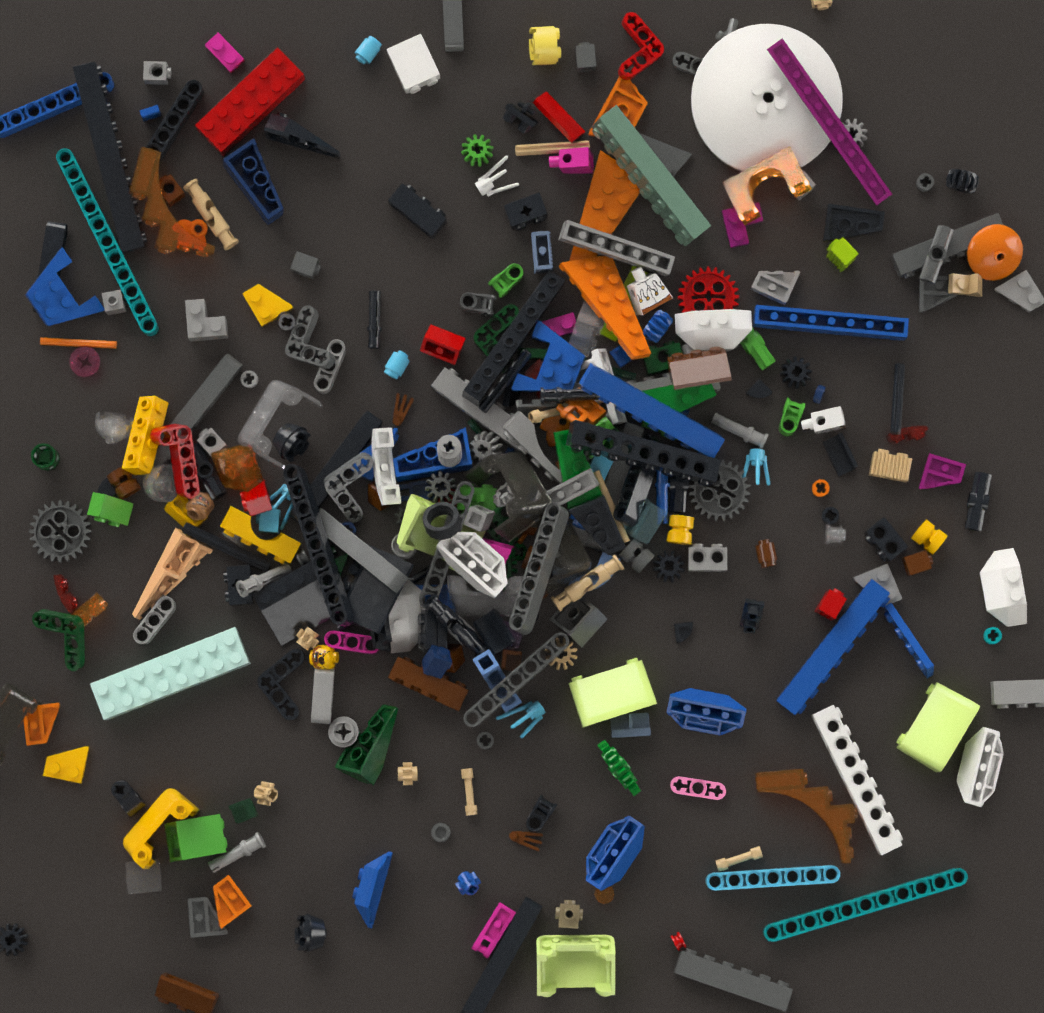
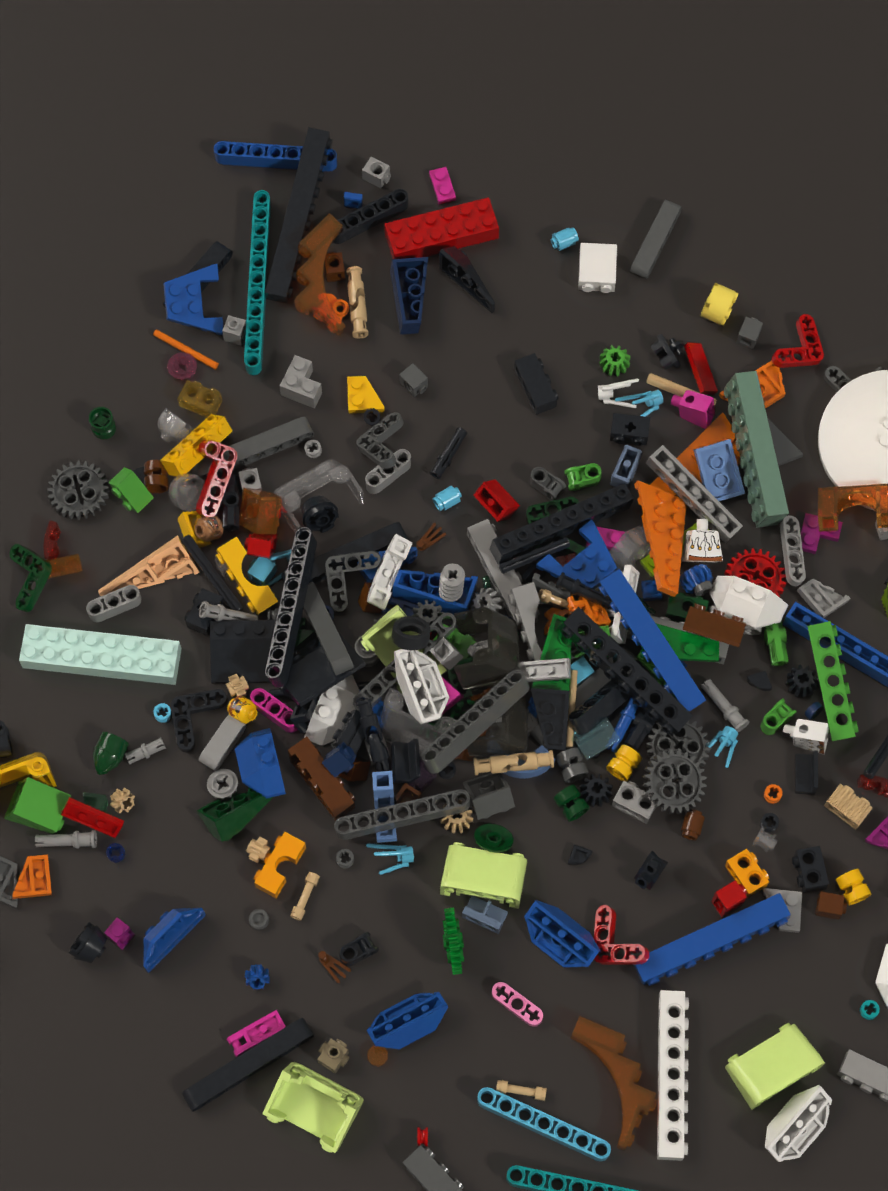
camera: 30 degrees right, 15 degrees down
(120, 392) = (197, 403): none -> clear yellow brick
(229, 759) = (108, 752): none -> dark green helmet
(249, 823) = (92, 817): none -> red tile
(253, 690) = (164, 707): none -> medium azure bush
(259, 738) = (145, 750): none -> light grey pin
(282, 835) = (115, 846): none -> clear blue bush
(330, 909) = (119, 933): none -> magenta brick
(367, 698) = (260, 764): none -> blue wedge
(431, 759) = (286, 849): none -> light orange arch
(530, 171) = (650, 398): none -> medium azure plant
(603, 650) = (493, 838): none -> dark green dish
(627, 212) = (719, 470): none -> medium blue plate
(647, 587) = (566, 798): none -> dark green wheel
(668, 333) = (703, 588): none -> dark grey tile
(725, 256) = (789, 550): none -> light grey beam
(747, 515) = (691, 780): none -> dark grey gear
(748, 698) = (608, 946): none -> red beam
(800, 320) = (816, 633): none -> bright green brick
(831, 577) = (742, 875): none -> light orange brick
(910, 641) = (787, 973): blue wing -> none

